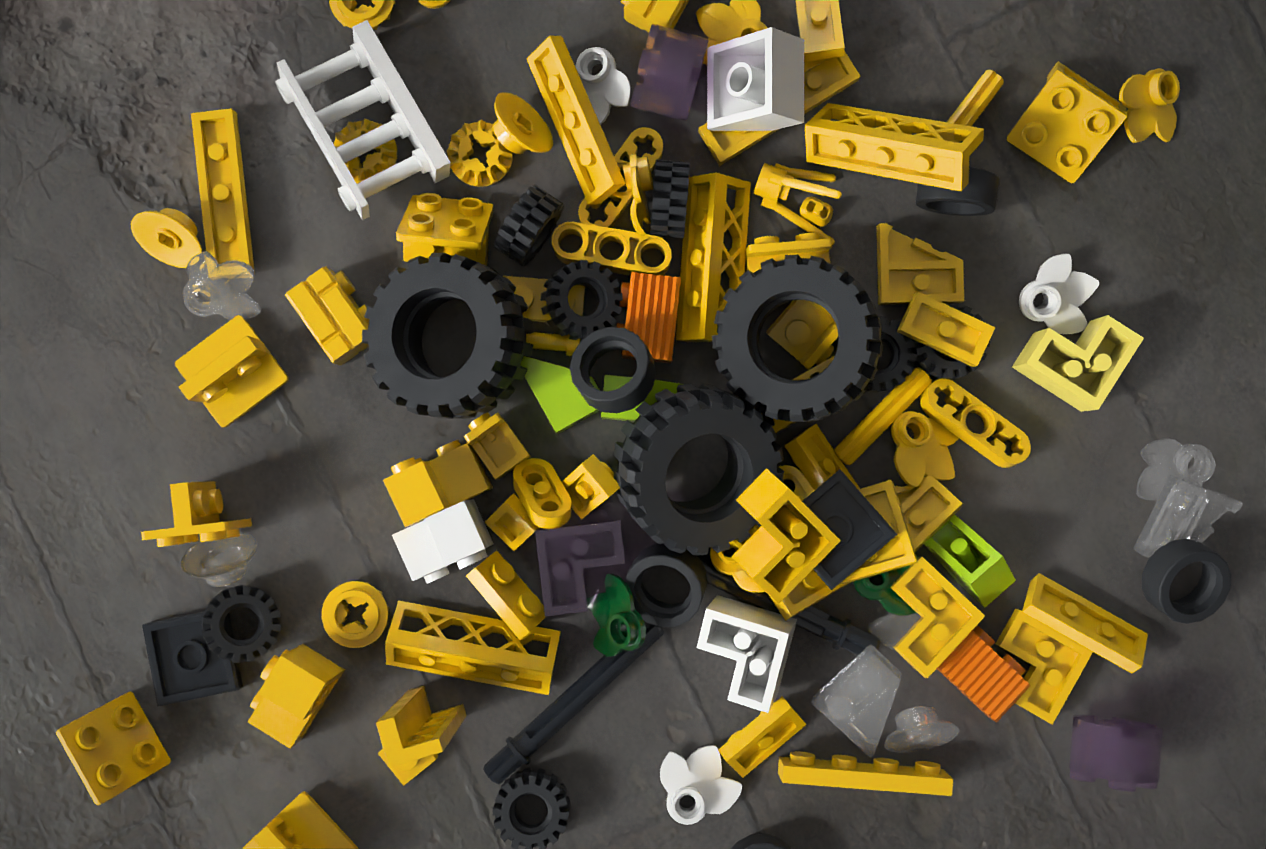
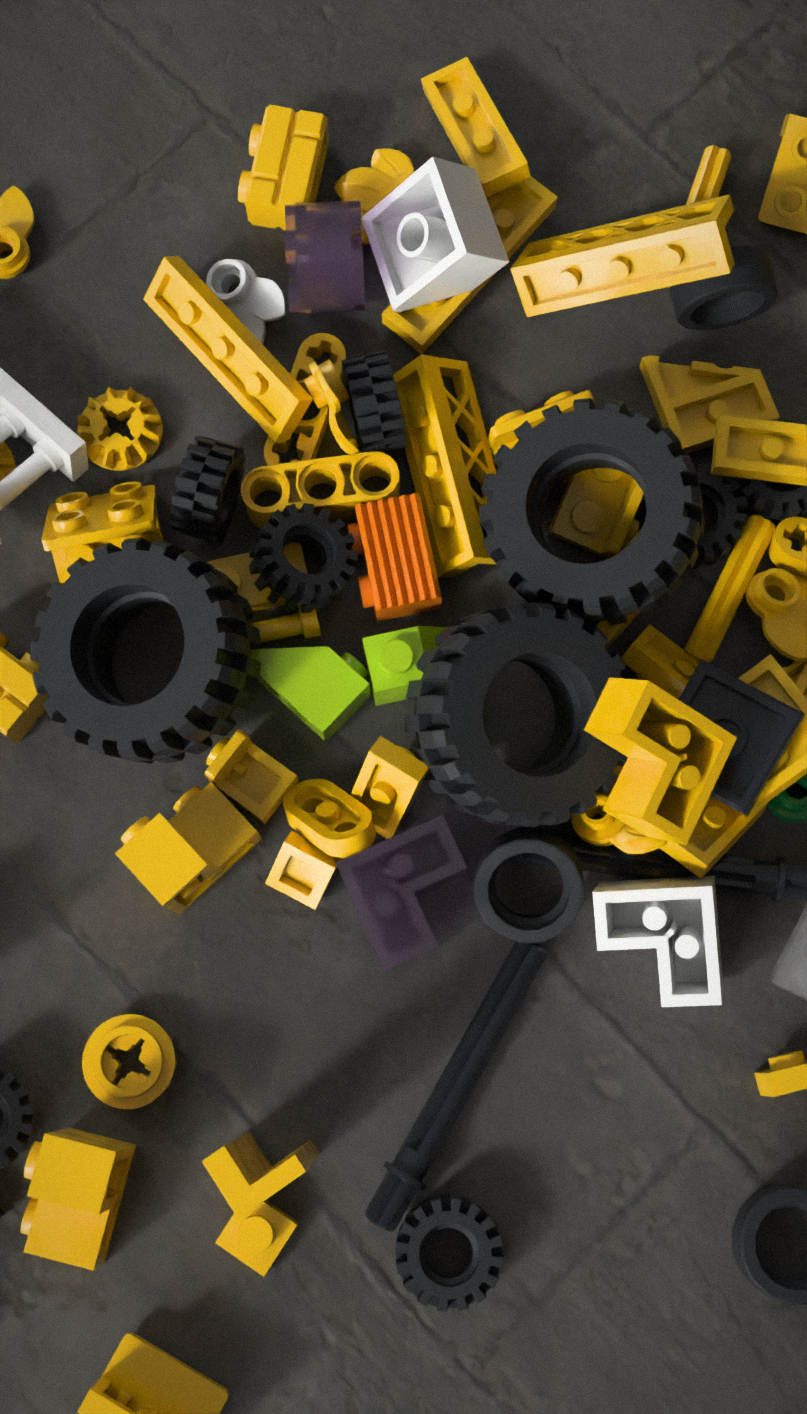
camera: 15 degrees left, 10 degrees down
(442, 539) = (218, 921): white brick -> none
(468, 660) = (300, 1066): yellow fence -> none
(507, 594) = (325, 966): yellow plate -> none
(520, 125) = (158, 378): yellow piece -> none
(596, 346) = (348, 597): black tyre -> none
(616, 615) = (479, 950): dark green plate -> none
(700, 779) = (661, 1136): white plate -> none
(761, 737) = (723, 1048): yellow plate -> none
(776, 183) = (499, 351): yellow plant -> none
(816, 211) = (559, 372): yellow rock -> none

